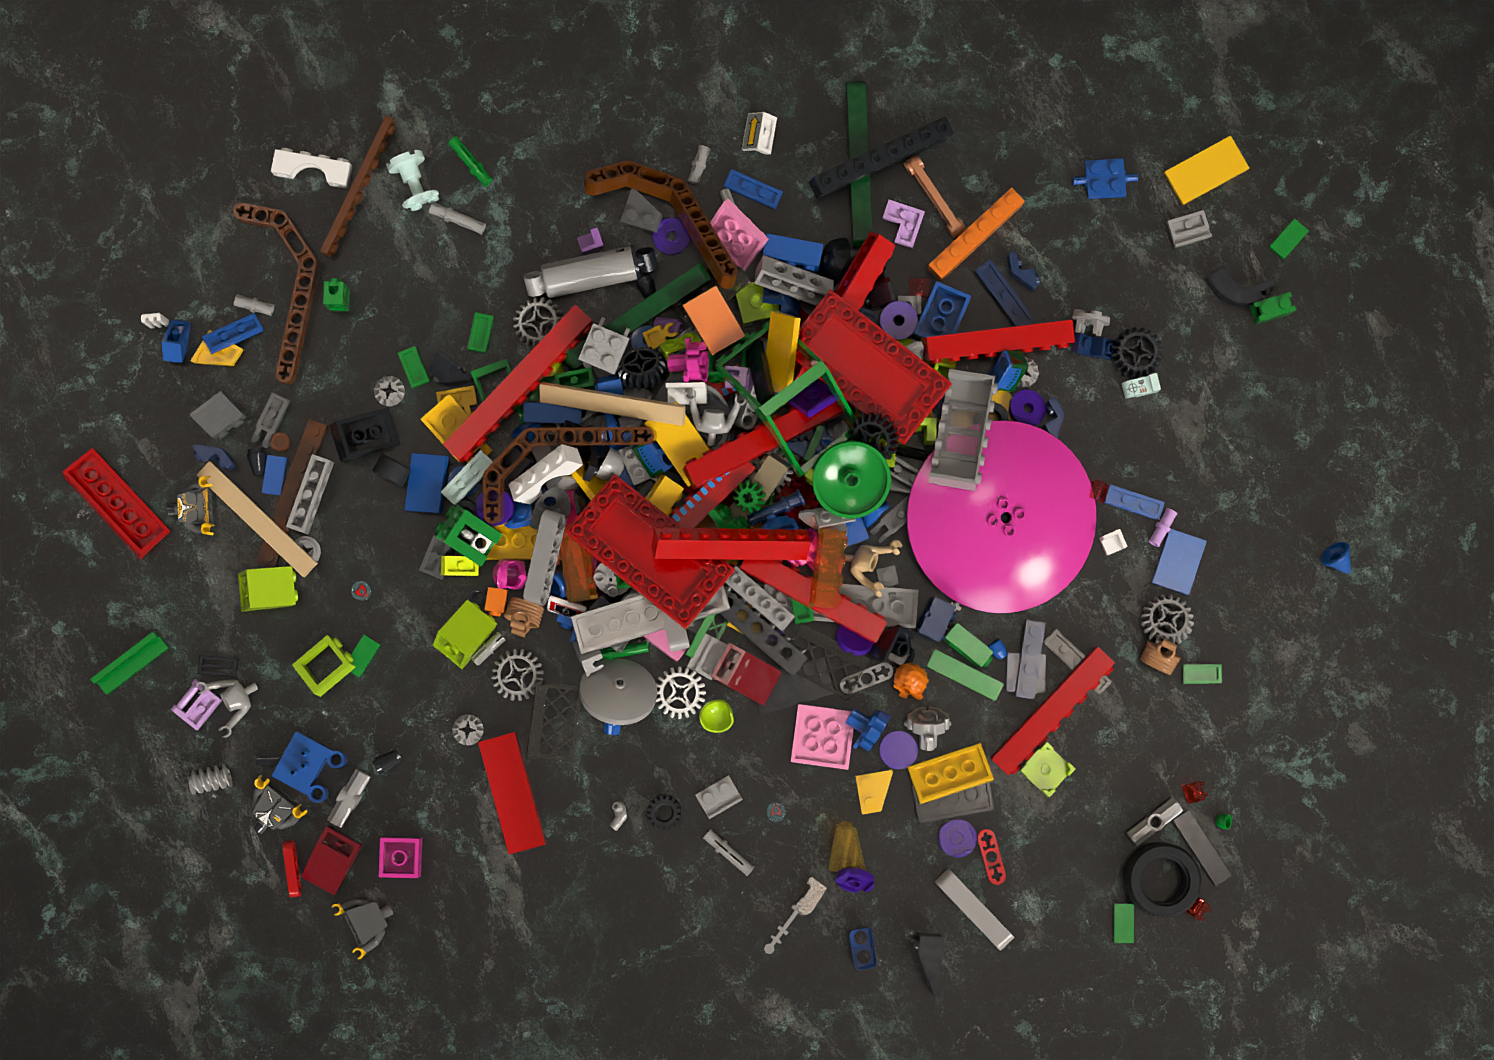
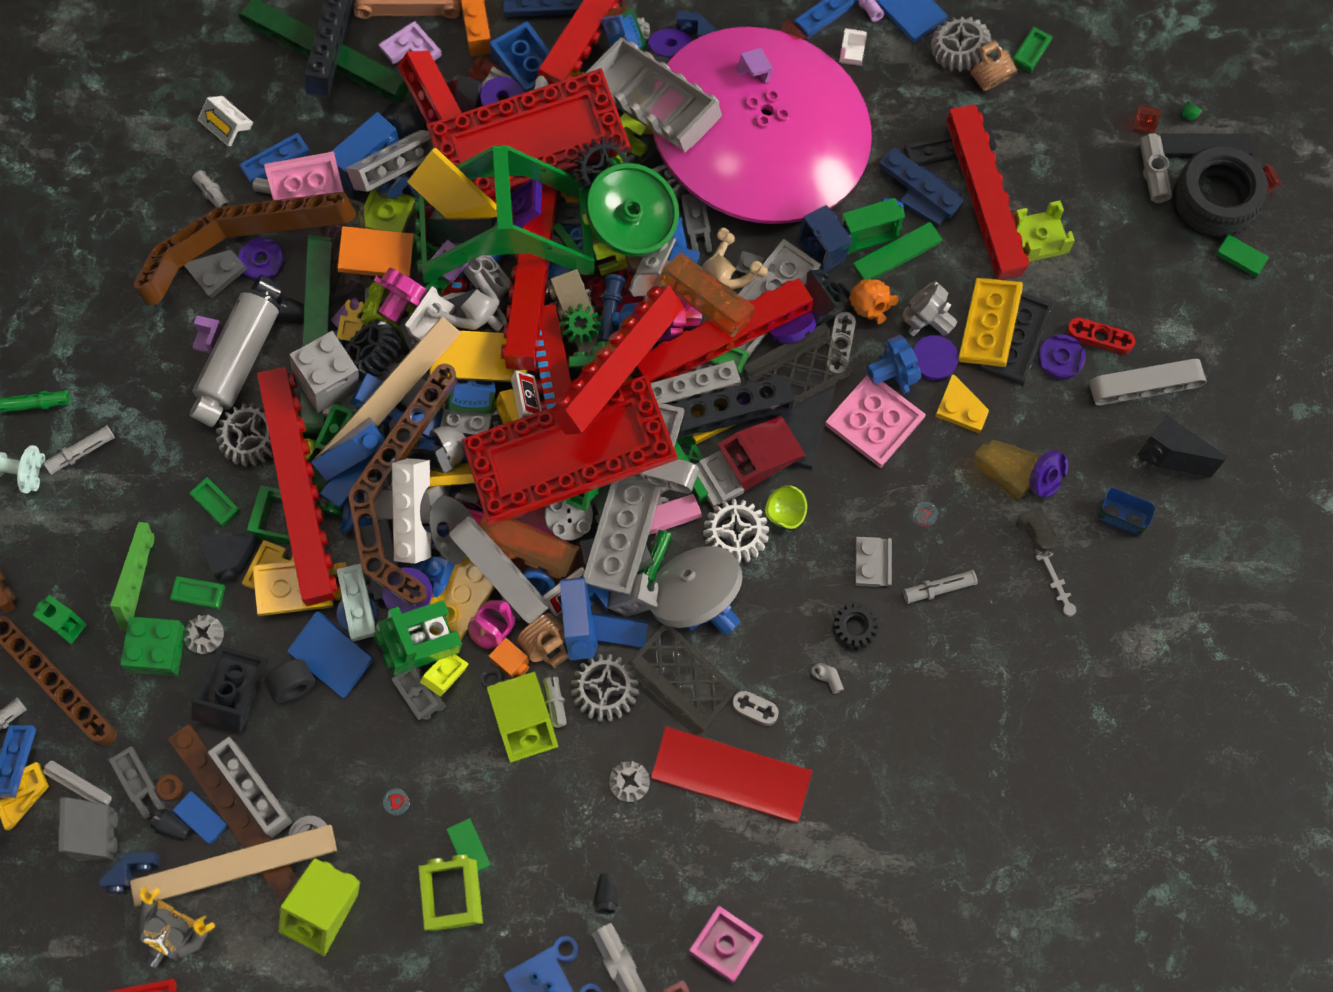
camera: 60 degrees left, 15 degrees down
(245, 383) = (76, 783): none -> light grey axle
(359, 366) = (153, 646): none -> green brick
(396, 318) = (131, 577): none -> bright green wing
(546, 630) = (578, 619): none -> blue slope
(559, 652) = (620, 630): none -> blue tile
(562, 782) = (756, 702): none -> light grey beam
(563, 405) = (350, 449): none -> blue slope
(674, 495) = (525, 394): none -> slope
(1032, 488) = (756, 64): none -> medium lavender panel

